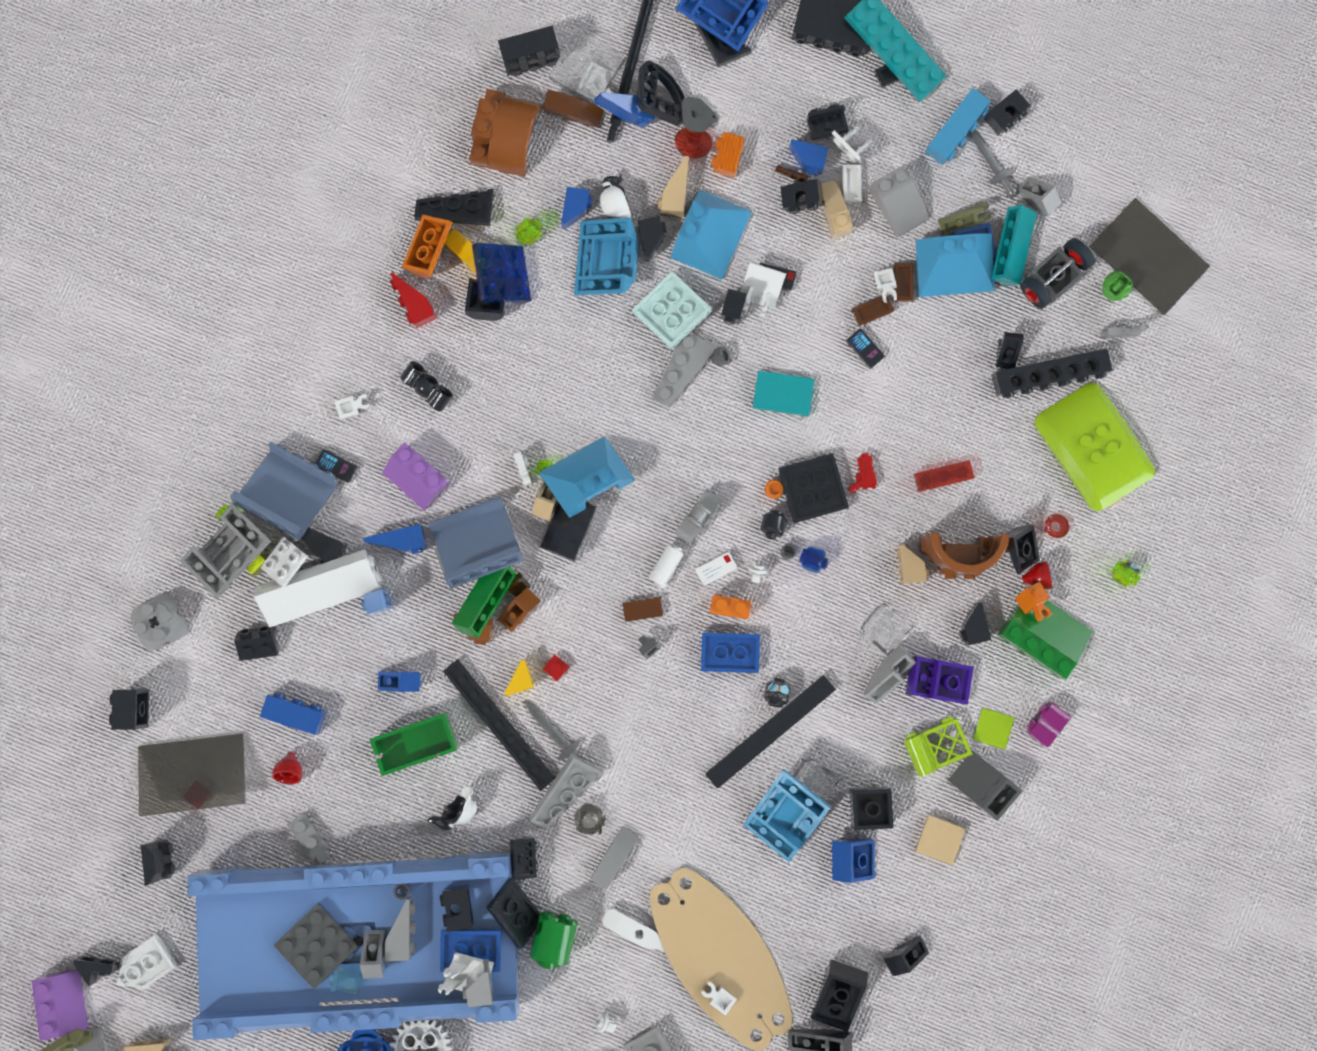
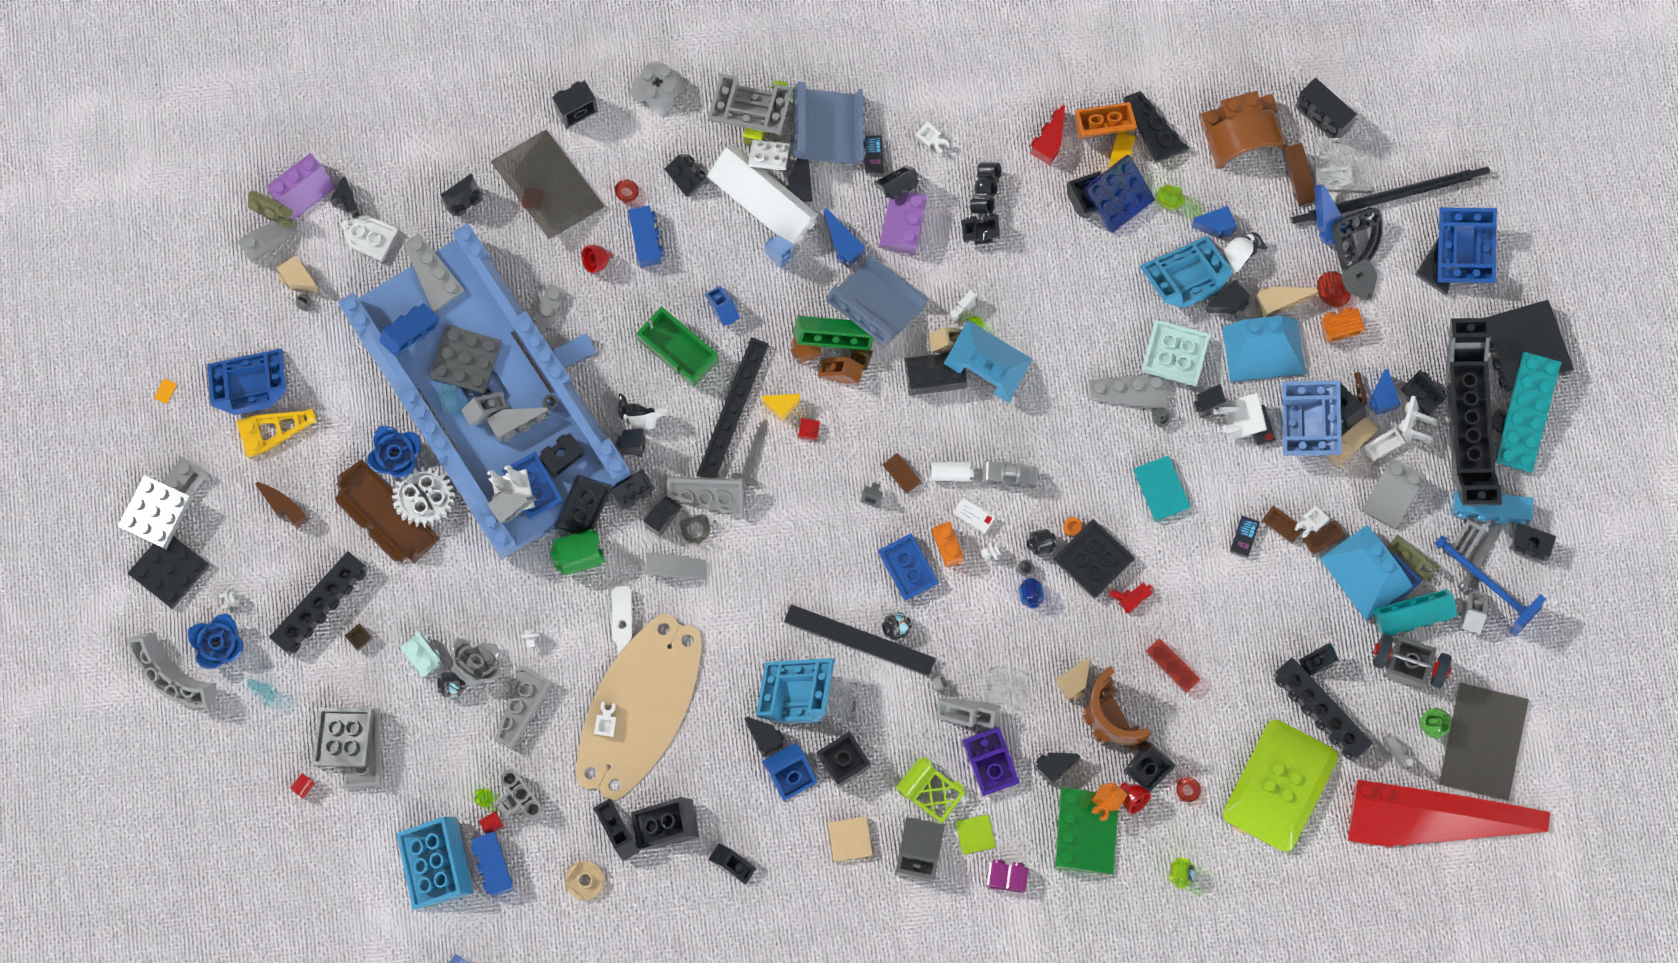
camera: 65 degrees right, 10 degrees down
(220, 931) = (433, 275): none -> light grey wing
(233, 703) = (626, 184): none -> clear red piece
(257, 987) = (408, 329): none -> blue brick
(363, 837) = (574, 351): none -> medium blue slope
(376, 460) = (898, 182): none -> black slope
(462, 412) = (981, 230): none -> black cylinder
(479, 833) = (632, 442): none -> black slope
(561, 843) = (661, 516): none -> black slope
(800, 230) = (1311, 418): none -> medium blue slope
(809, 864) = (764, 735): none -> black slope
(847, 684) = (940, 683): none -> light grey hinge
(874, 95) = (1471, 412): none -> black slope
(966, 169) = (1474, 527): none -> light grey tile
(1068, 154) = (1526, 613): none -> blue tile
(1179, 356) = (1408, 816): none -> red wedge

